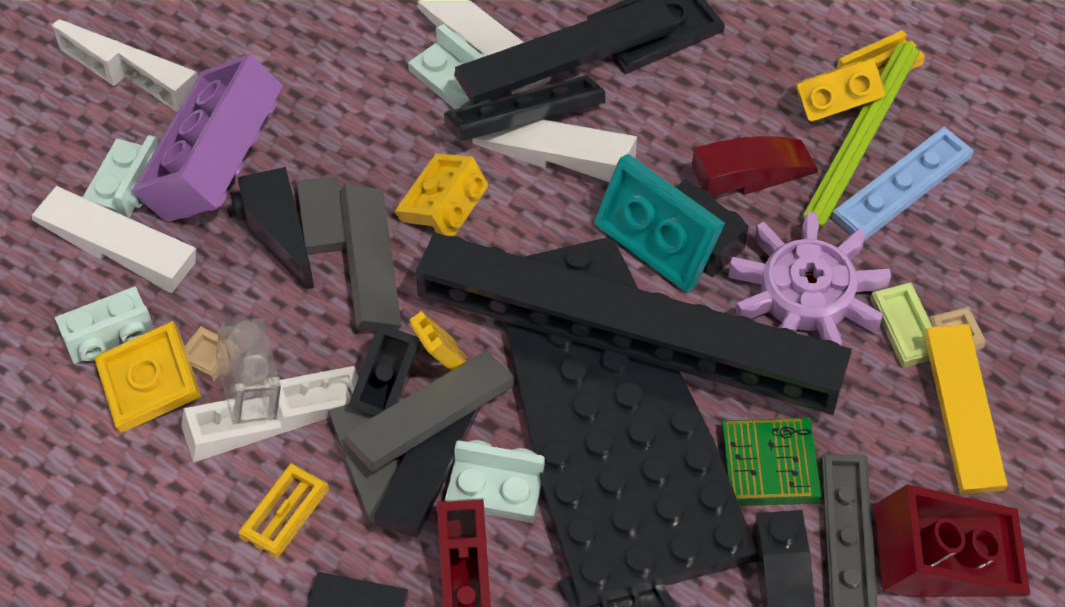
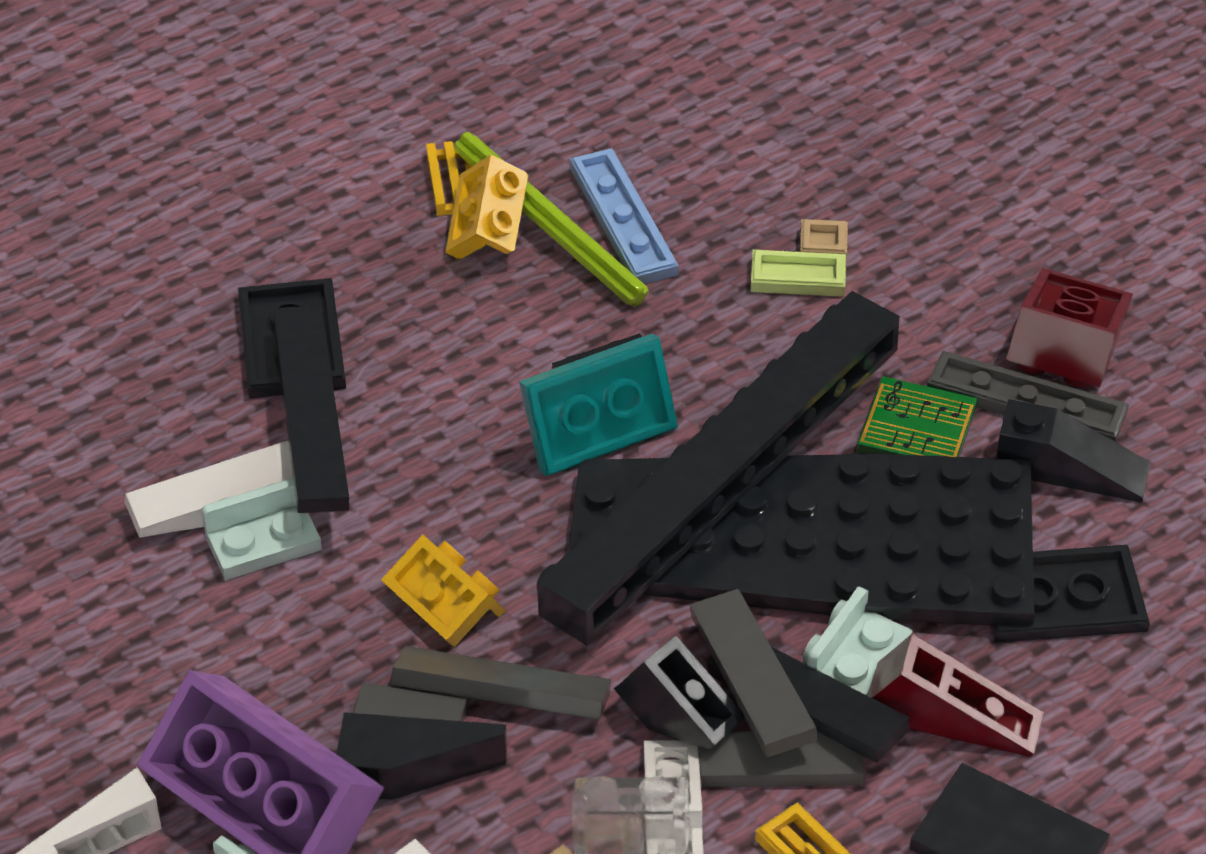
camera: 70 degrees left, 10 degrees down
(437, 341) = (664, 629): yellow tile -> none
(524, 107) = (367, 467): black tile -> none
(568, 145) = (417, 477): white slope -> none
(751, 163) = (544, 319): dark red slope -> none
(810, 282) = (722, 320): lavender gear -> none
(965, 410) = (920, 261): yellow tile -> none

